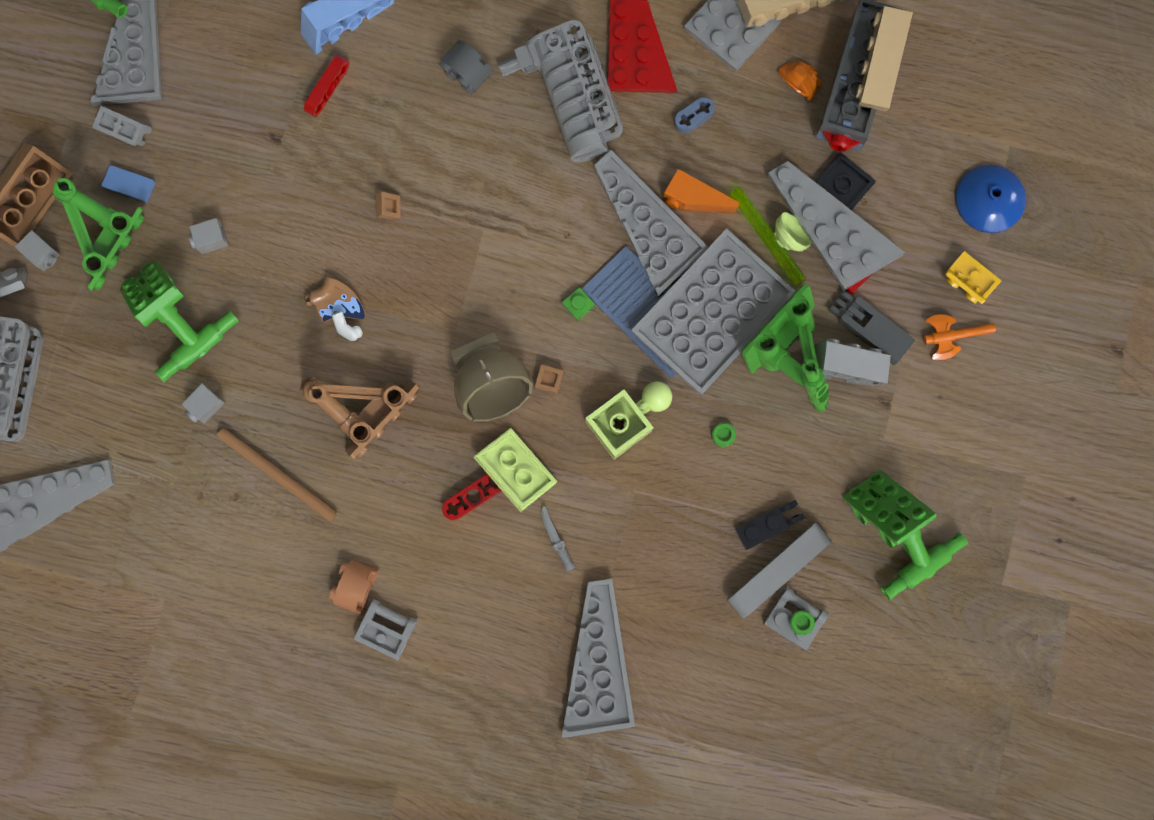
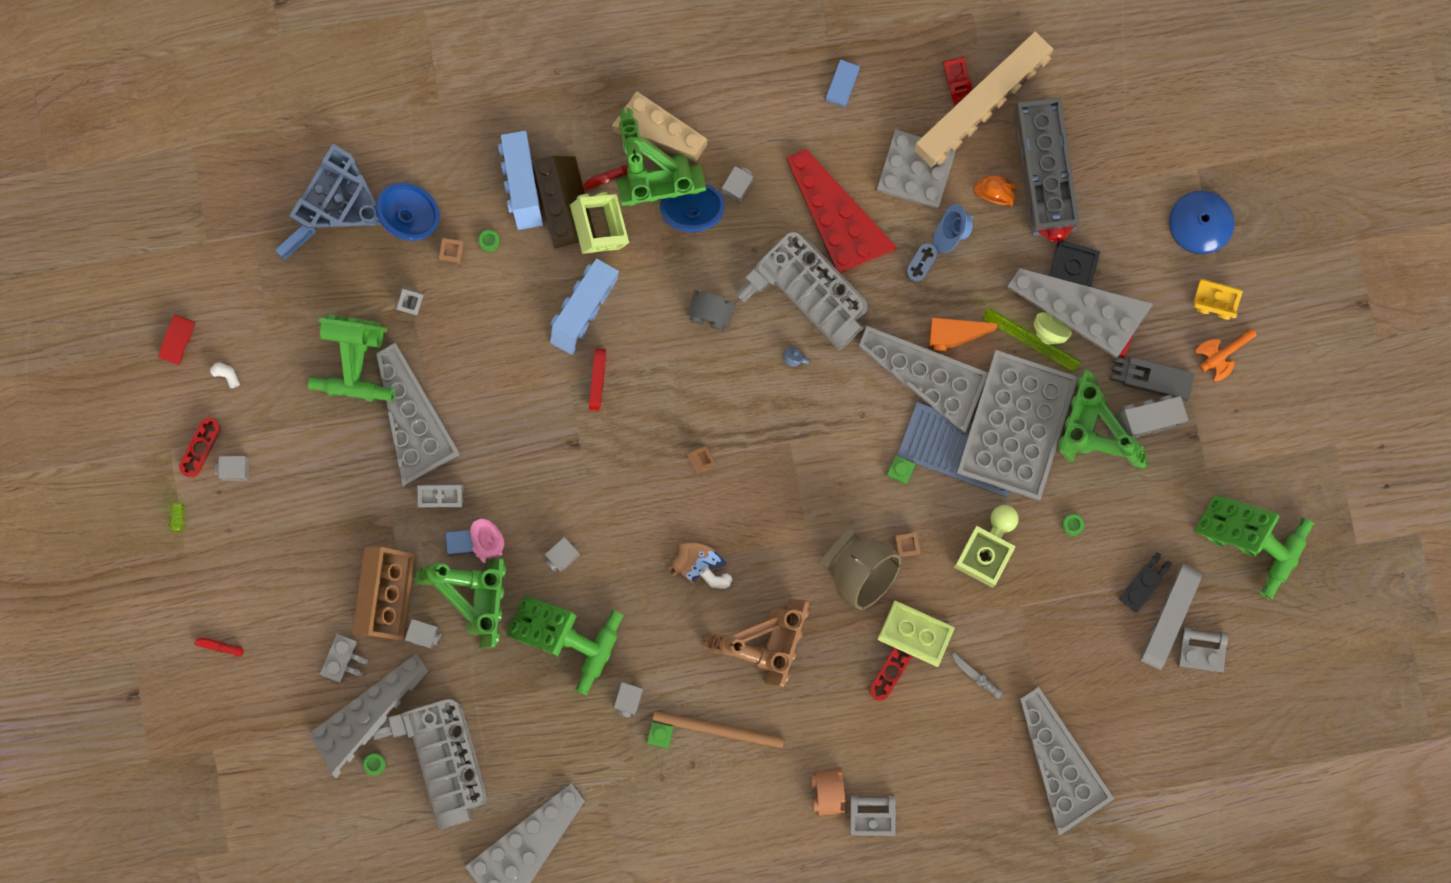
camera: 25 degrees left, 0 degrees up
(142, 187) = (486, 540): none -> bright pink hat
(218, 453) = (660, 735): none -> bright green plate
(526, 149) = (794, 357): none -> sand blue piece
(740, 95) = (953, 227): none -> medium blue piece
(801, 622) = (1209, 651): bright green tile -> none
(884, 58) = (1063, 152): tan wedge -> none

